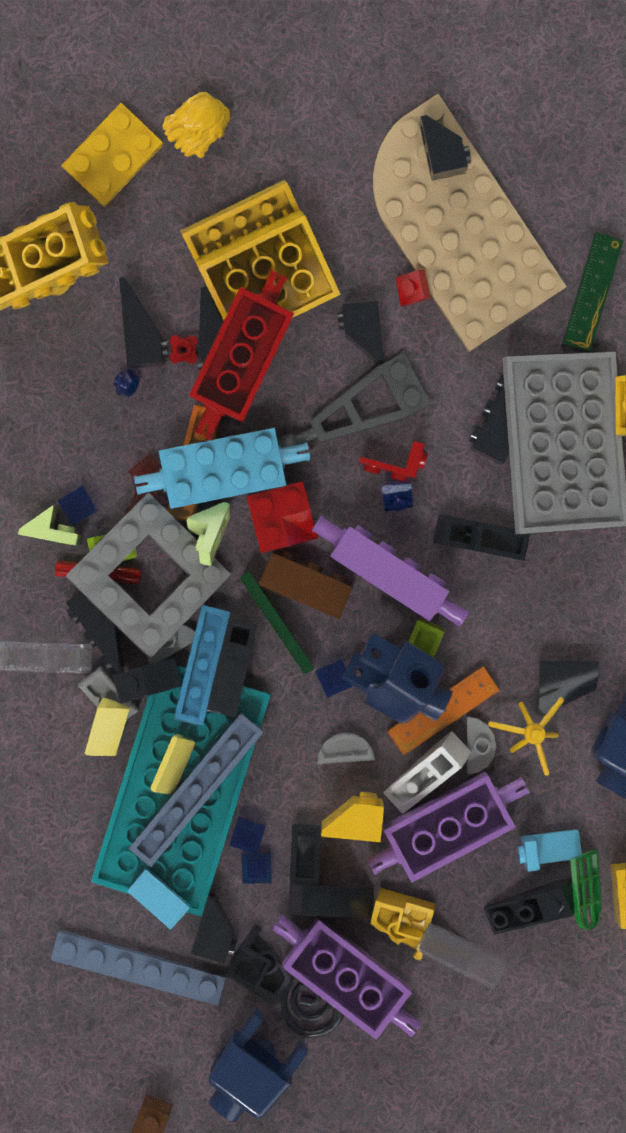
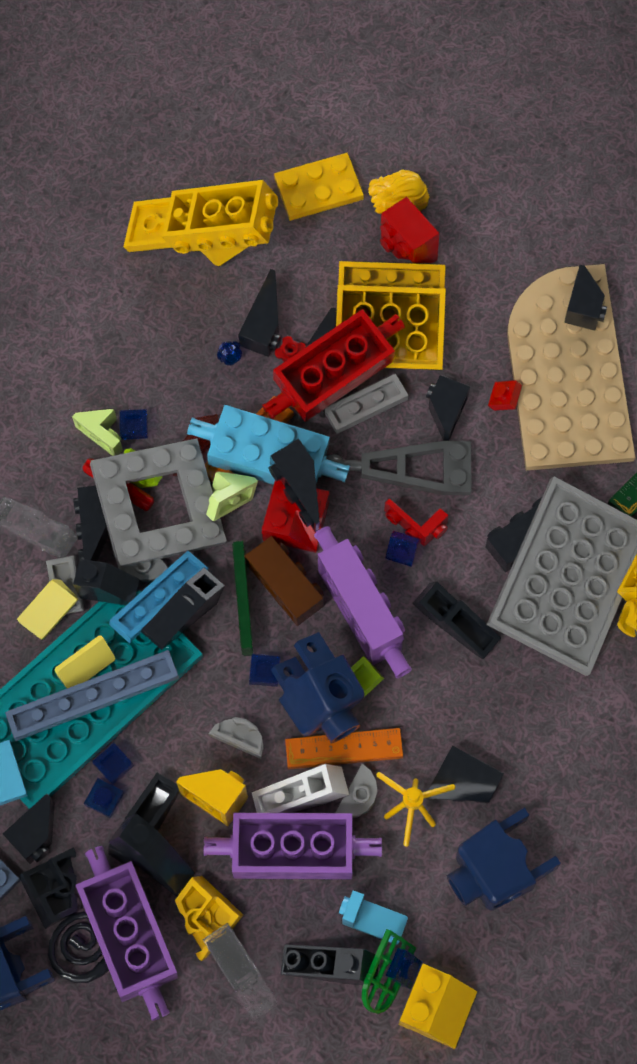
camera: 30 degrees right, 20 degrees down
(234, 168) = (409, 233): none -> red slope
(269, 486) = (297, 473): none -> black slope
(287, 365) = (366, 403): none -> light grey plate
(599, 877) = (404, 968): none -> clear blue plate

